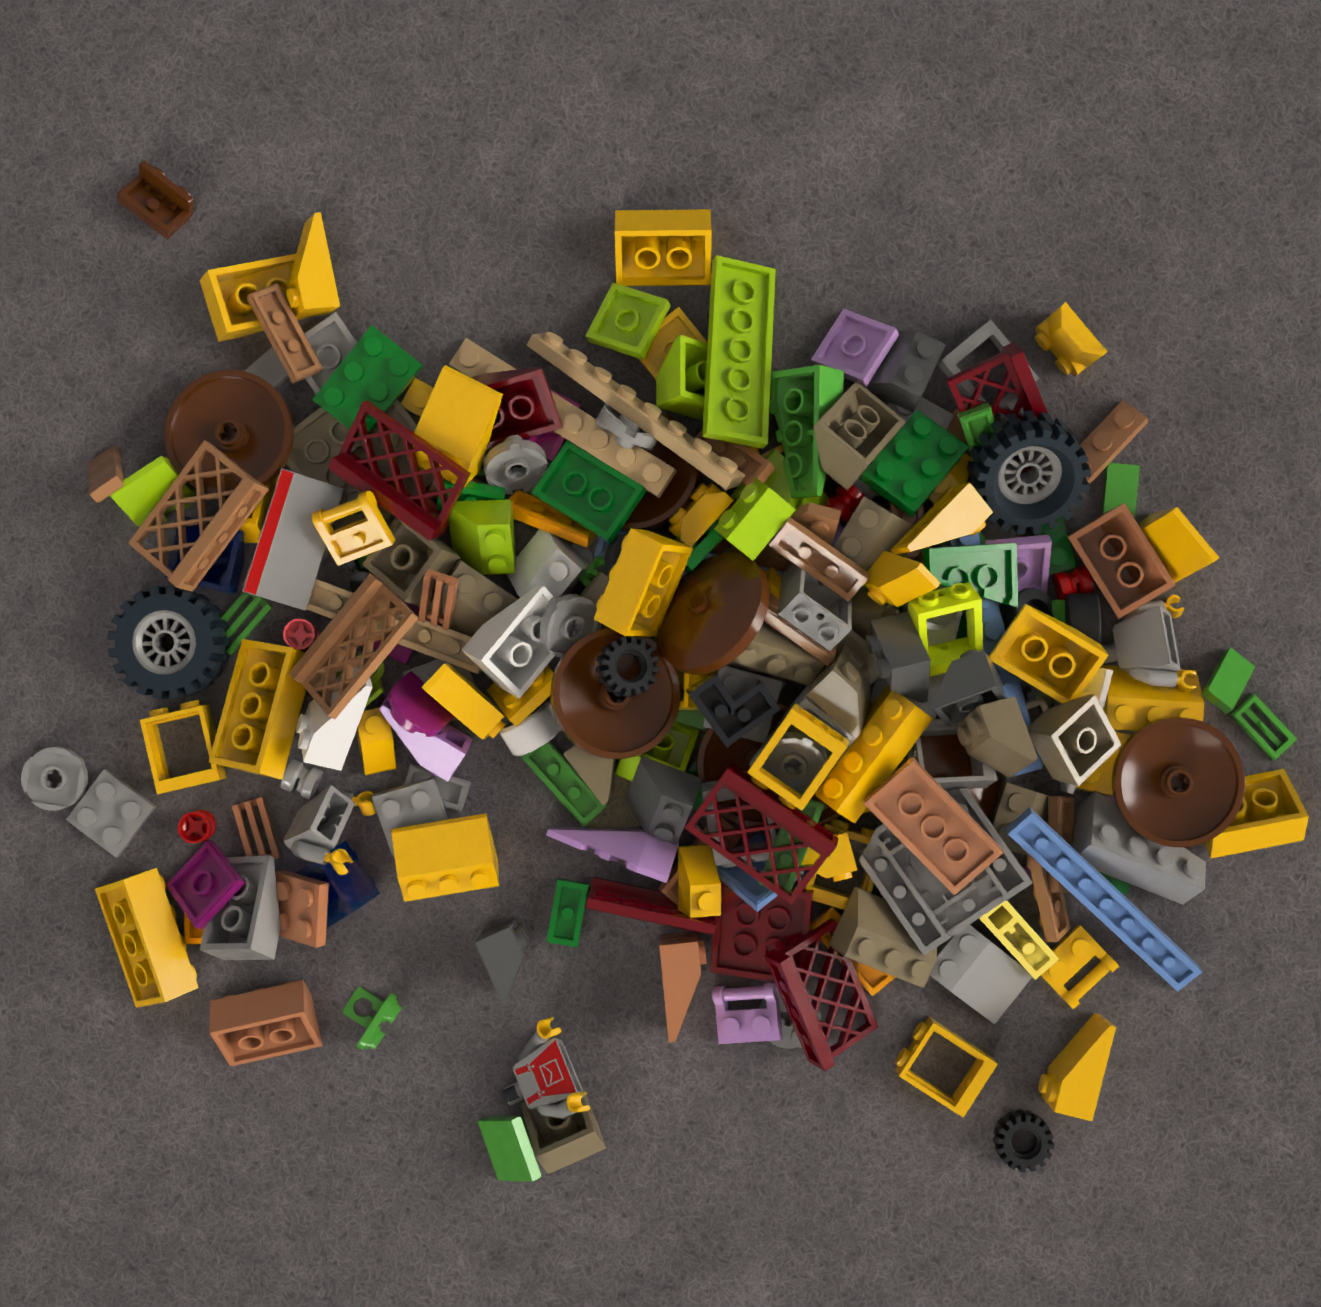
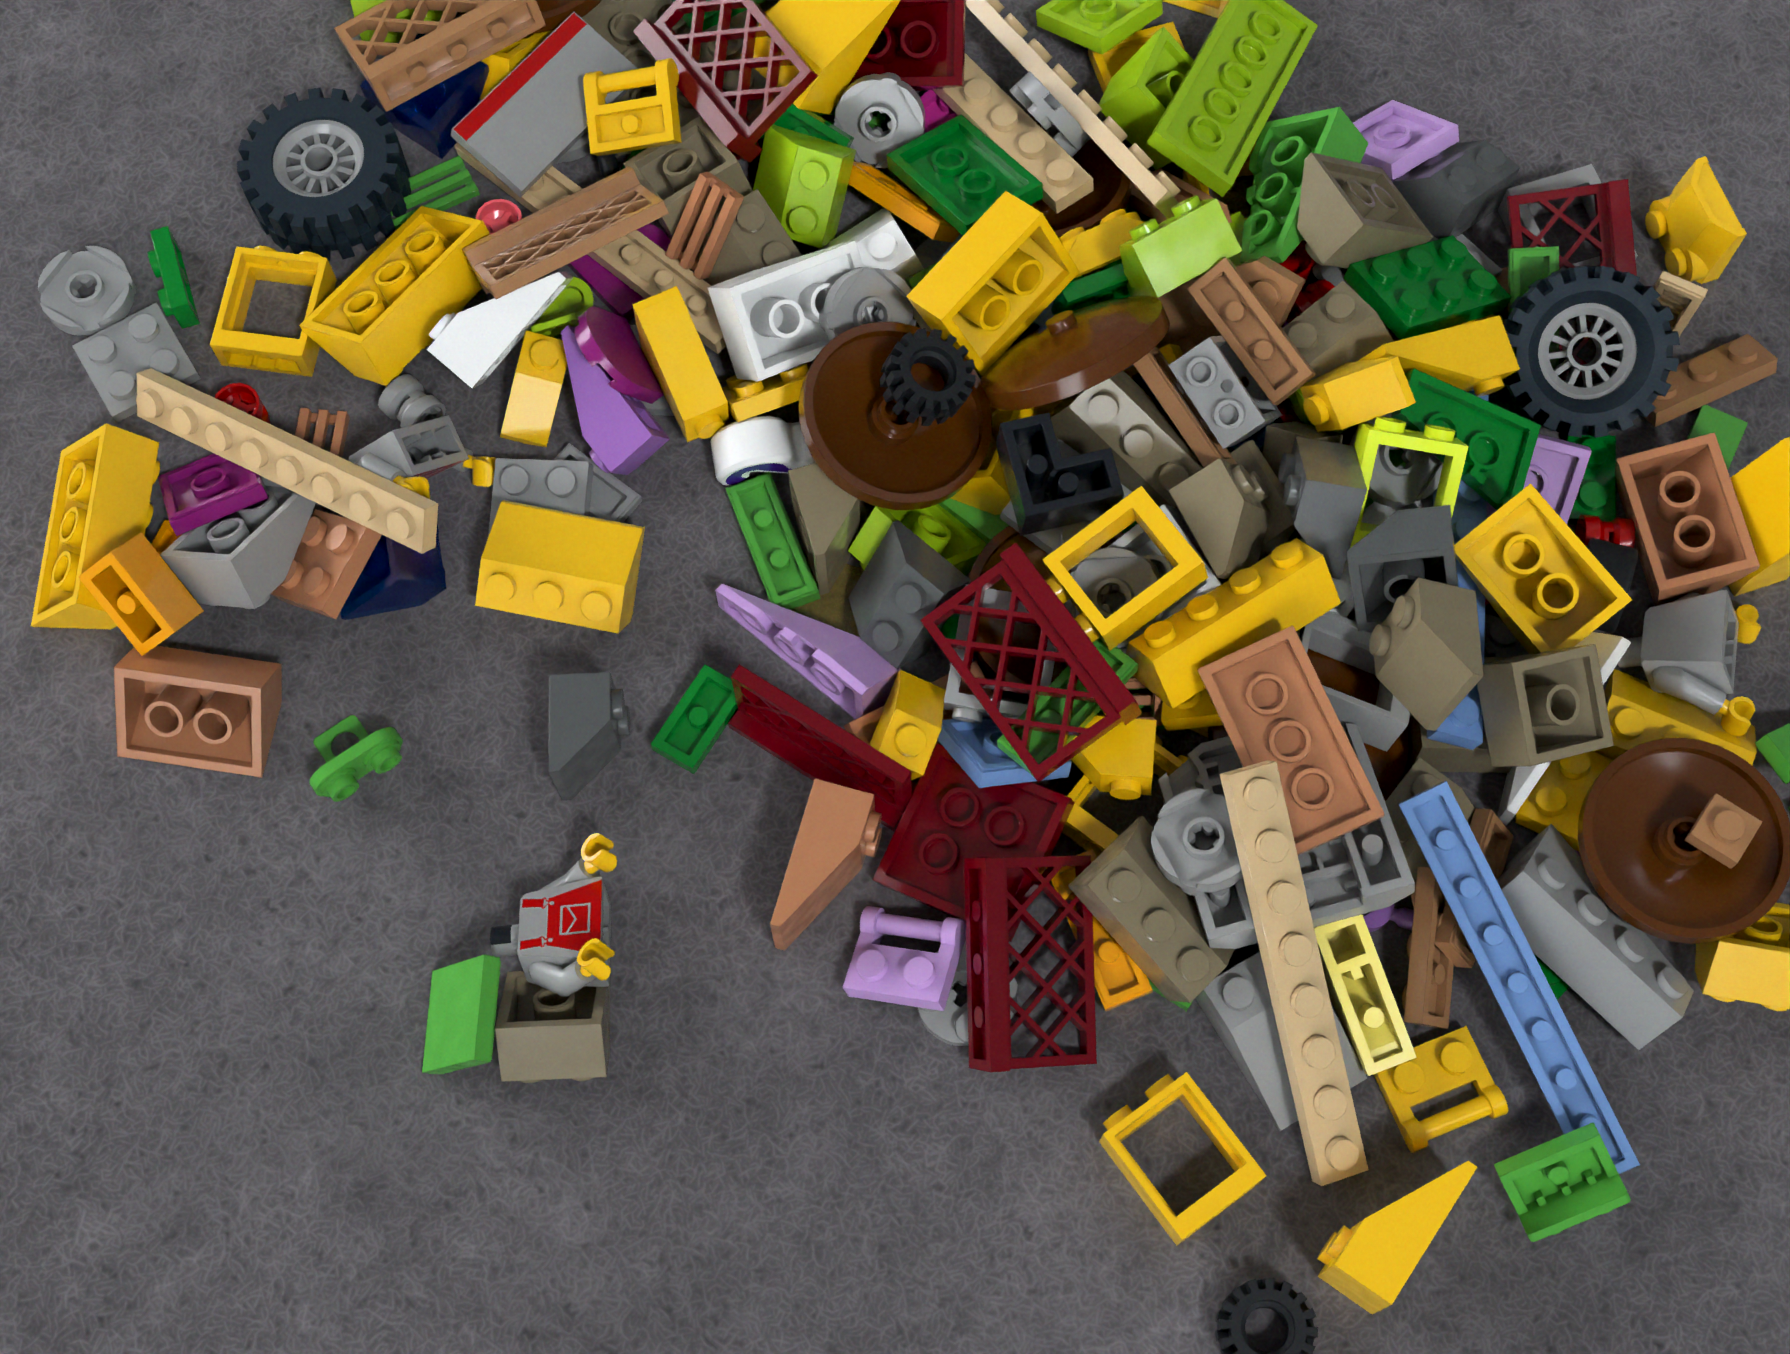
camera: 25 degrees right, 20 degrees down
(99, 741) = (168, 263): none -> green plate
(201, 979) = (140, 593): none -> light orange brick
(247, 861) = (288, 460): none -> tan plate
(882, 898) = (1174, 833): none -> light grey plate
(976, 950) = (1294, 972): none -> tan plate
(1068, 405) = (1680, 296): none -> tan slope
(1163, 1002) = (1562, 1182): none -> bright green bracket
(1200, 774) = (1723, 831): none -> medium nougat plate

